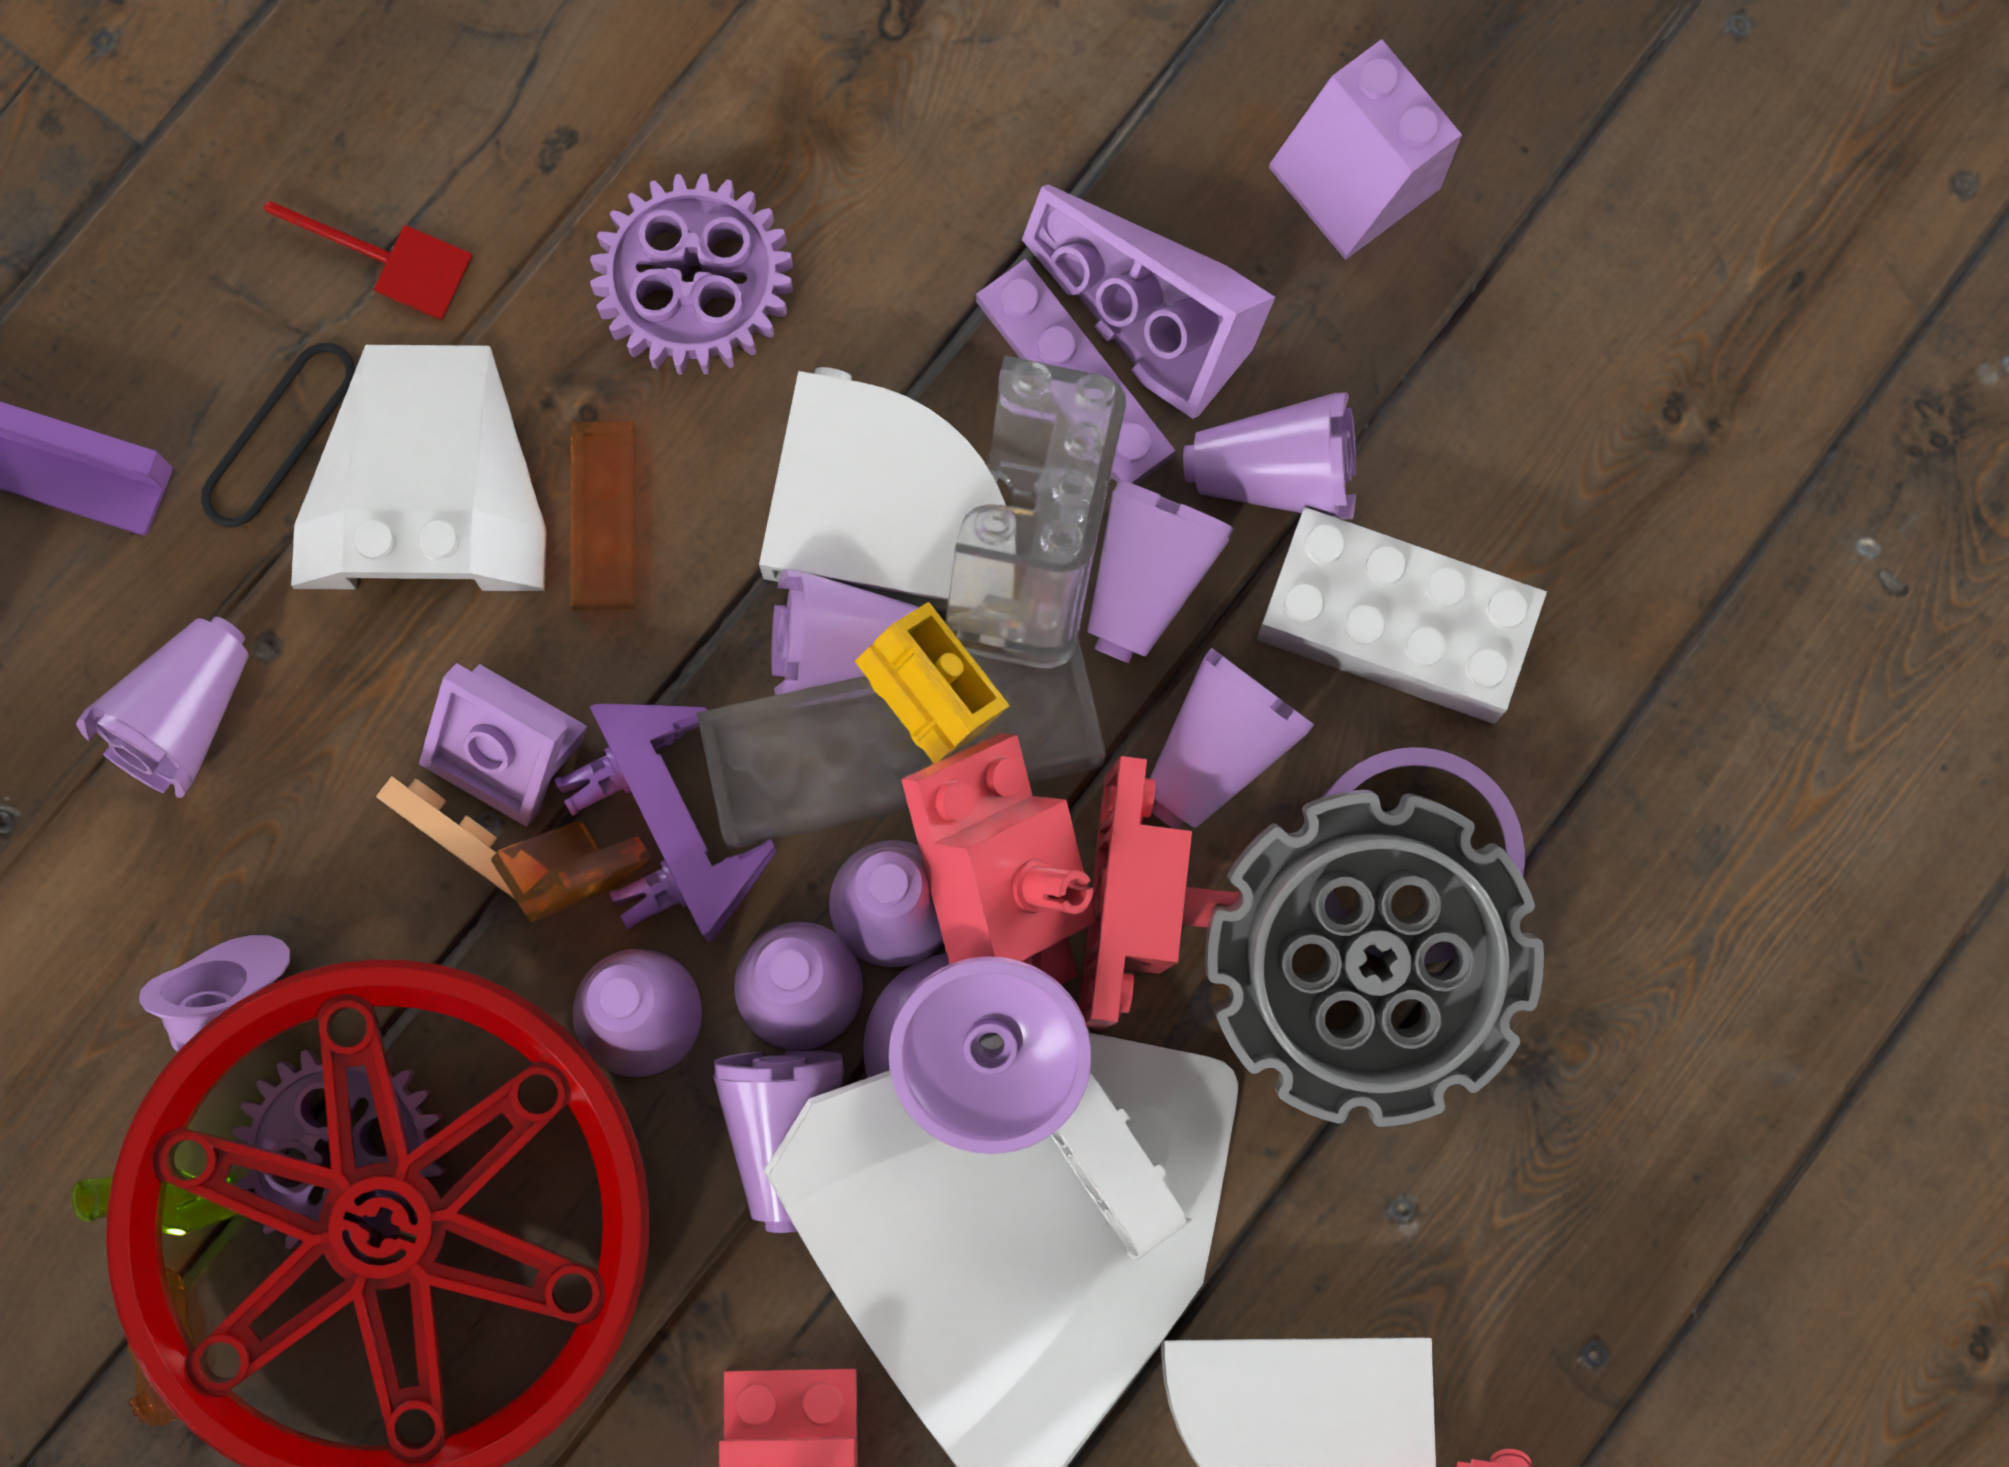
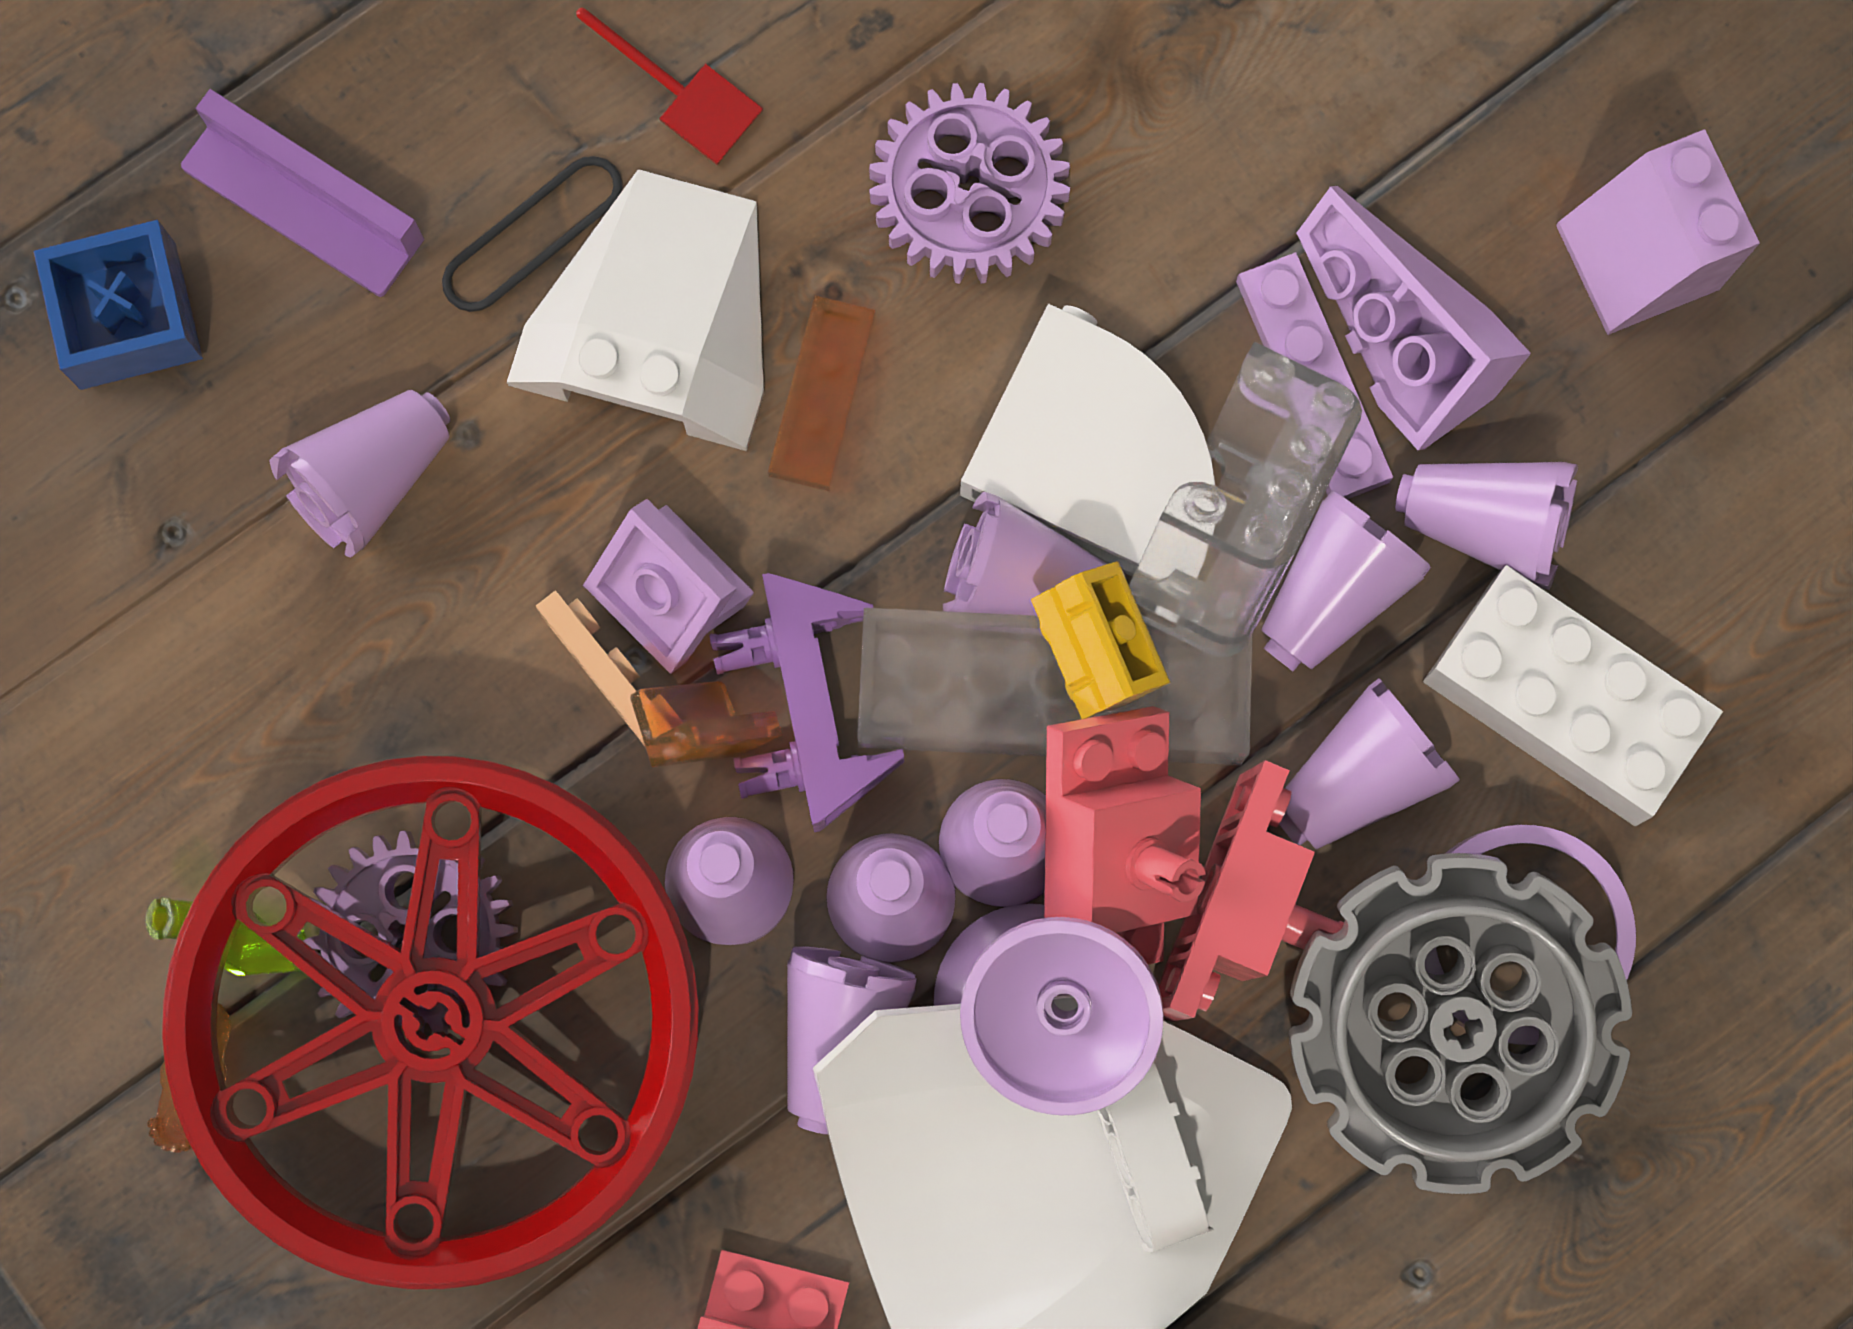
camera: 15 degrees right, 0 degrees up
(212, 983) = (333, 743): lavender piece -> none

